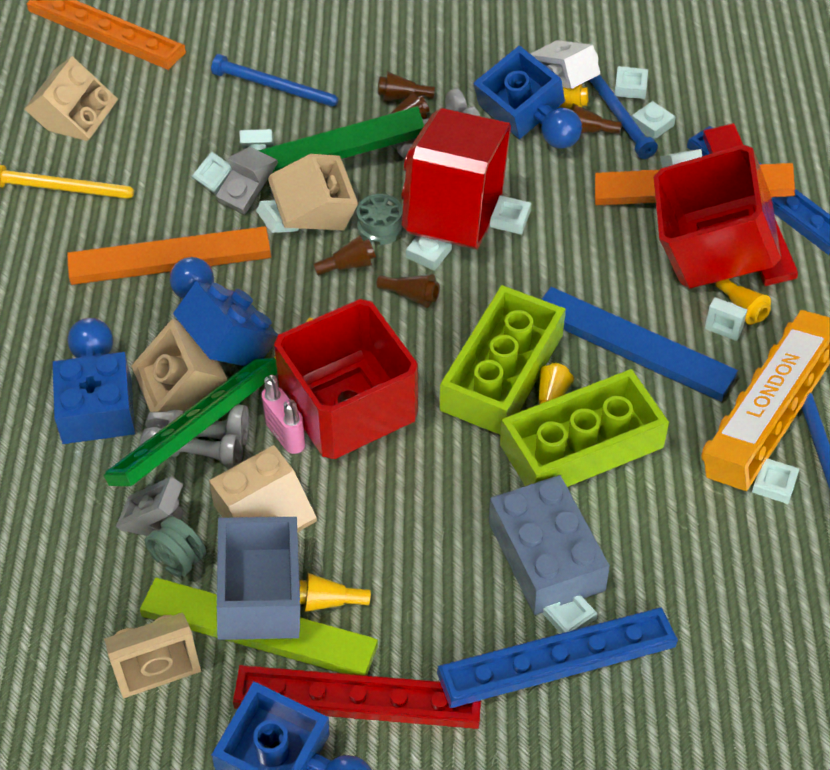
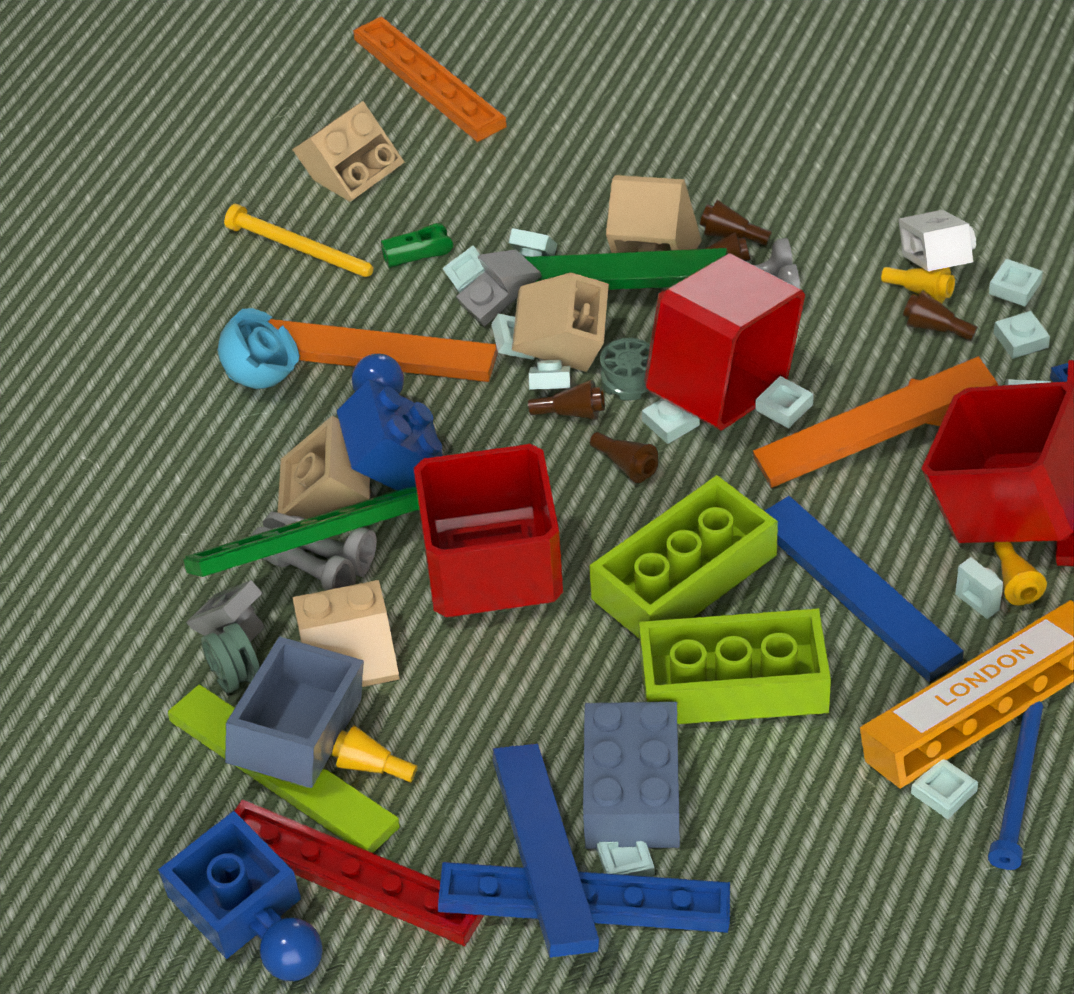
camera: 25 degrees right, 5 degrees down
(74, 282) = (256, 351): none -> medium azure cylinder
(94, 388) = (228, 473): blue brick -> none
(152, 654) = (155, 760): tan slope -> none
(161, 163) = (413, 246): none -> green bar
(221, 65) = (536, 150): blue bar -> none
(283, 417) = (409, 555): bright pink piece -> none
(322, 240) = (549, 375): none -> light aqua plate
(346, 94) = (650, 215): none -> tan slope
(516, 630) = (545, 851): none -> blue tile
(528, 94) = (870, 270): blue brick -> none
(554, 381) = (736, 599): yellow cone -> none
(586, 213) = (868, 423): none -> orange tile
(645, 146) = (991, 357): blue bar -> none

